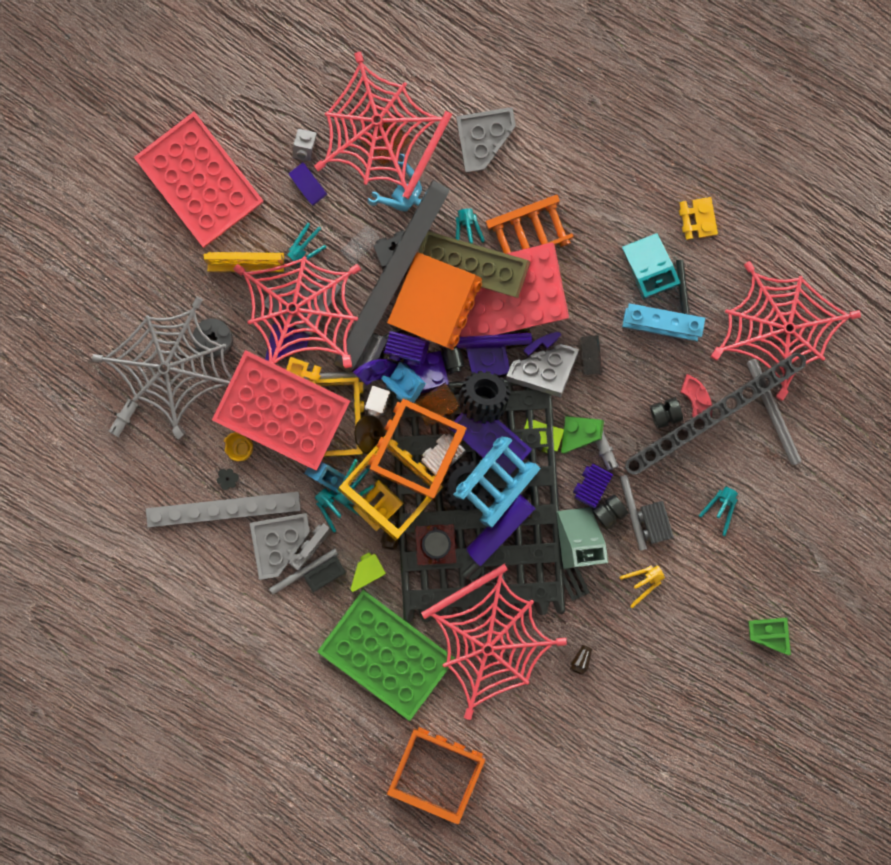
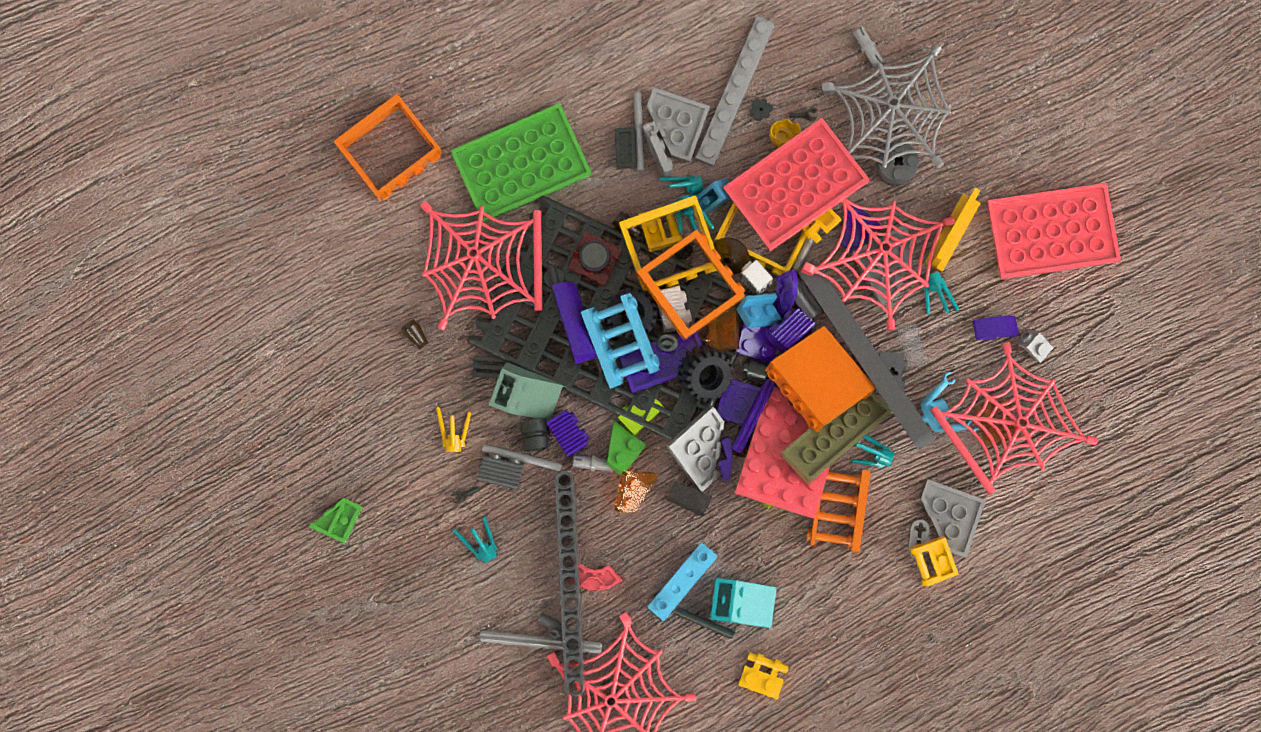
camera: 125 degrees right, 5 degrees down
(212, 441) = (804, 114): none -> pearl dark grey hand
(367, 571) = (606, 187): lime slope -> none
(474, 443) = (667, 341): none -> pearl dark grey plate
(520, 157) = (913, 535): none -> light grey beam
(525, 126) = (940, 558): none -> yellow plate
(609, 405) = (633, 490): none -> clear orange wing
(666, 412) = (596, 539): pearl dark grey wheel -> none
(691, 543) = (465, 494): none -> pearl dark grey hand
(754, 410) = (552, 624): none -> dark grey arm

